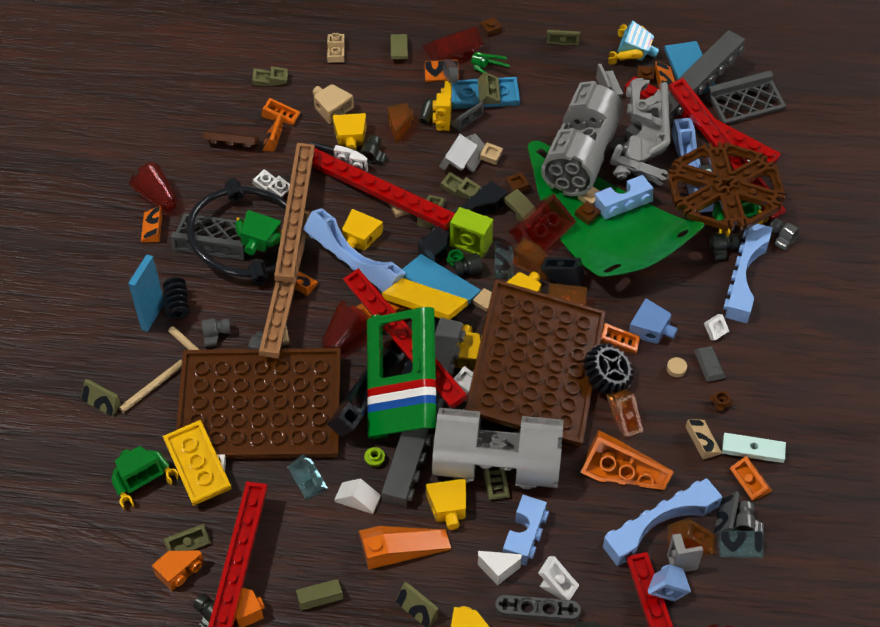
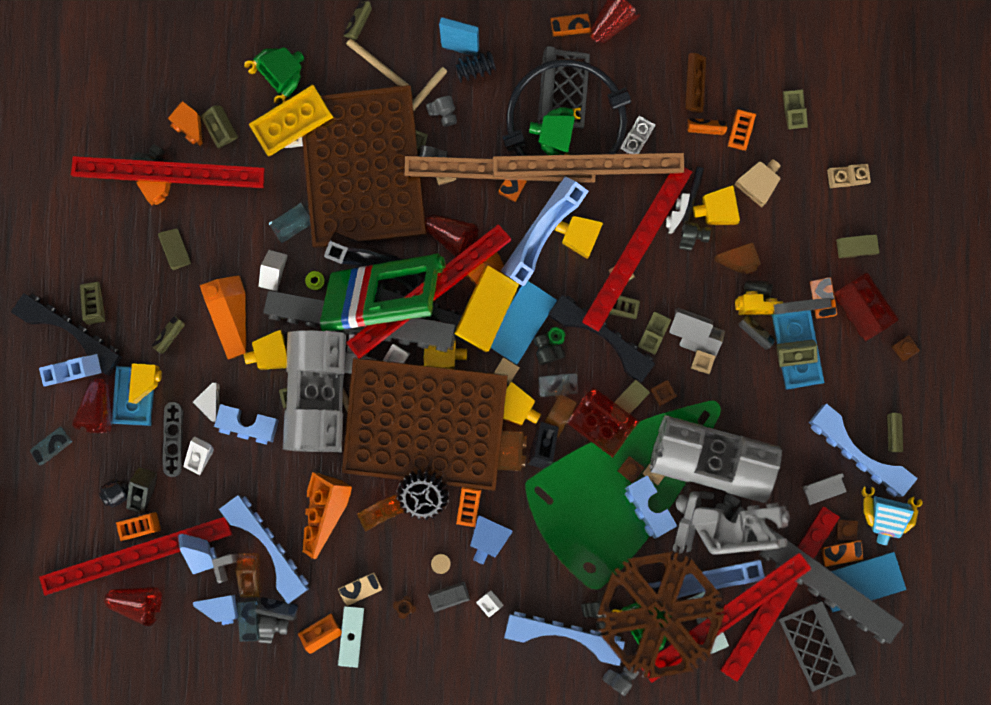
camera: 85 degrees right, 30 degrees up
(471, 232) = (582, 347): lime brick -> none
(481, 60) = (844, 341): green plant -> none
(554, 74) = (831, 425): none -> light blue arch
(728, 569) = (219, 609): none -> light blue slope

